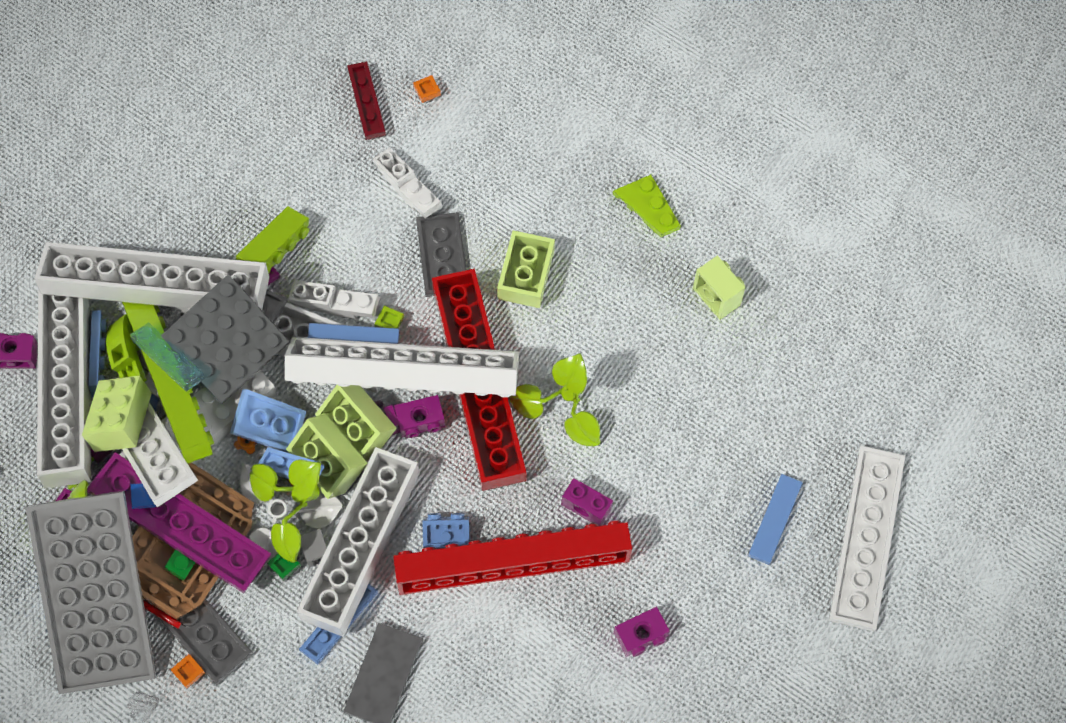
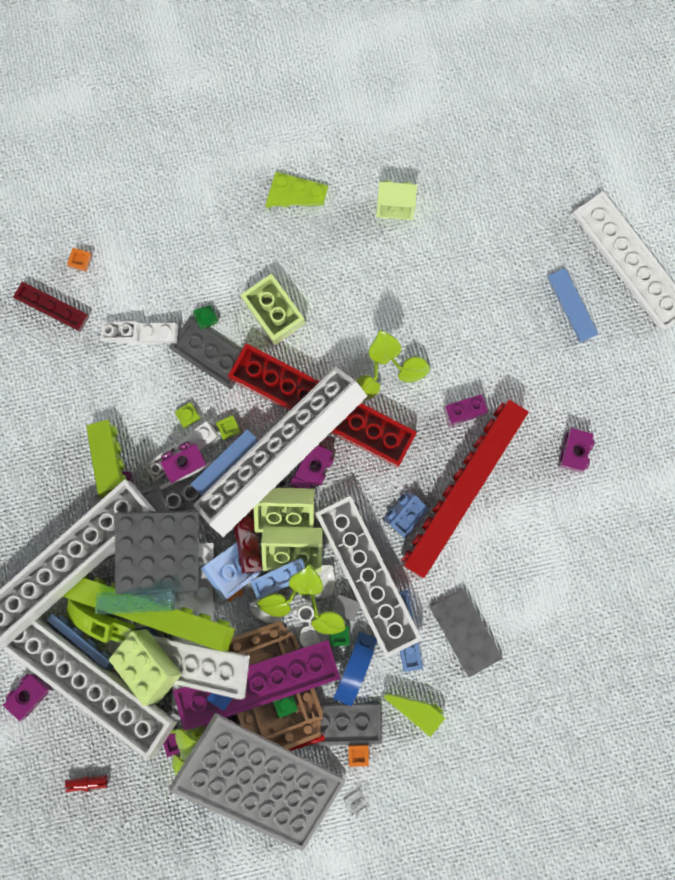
camera: 45 degrees left, 15 degrees up
(262, 598) = (355, 669): none -> blue arch
(273, 698) = (420, 712): none -> lime slope
(296, 416) = (248, 545): none -> dark red plate
(309, 300) = (193, 461): none -> magenta brick
(370, 280) = (187, 415): none -> lime plate
(469, 223) = (205, 317): none -> green plate

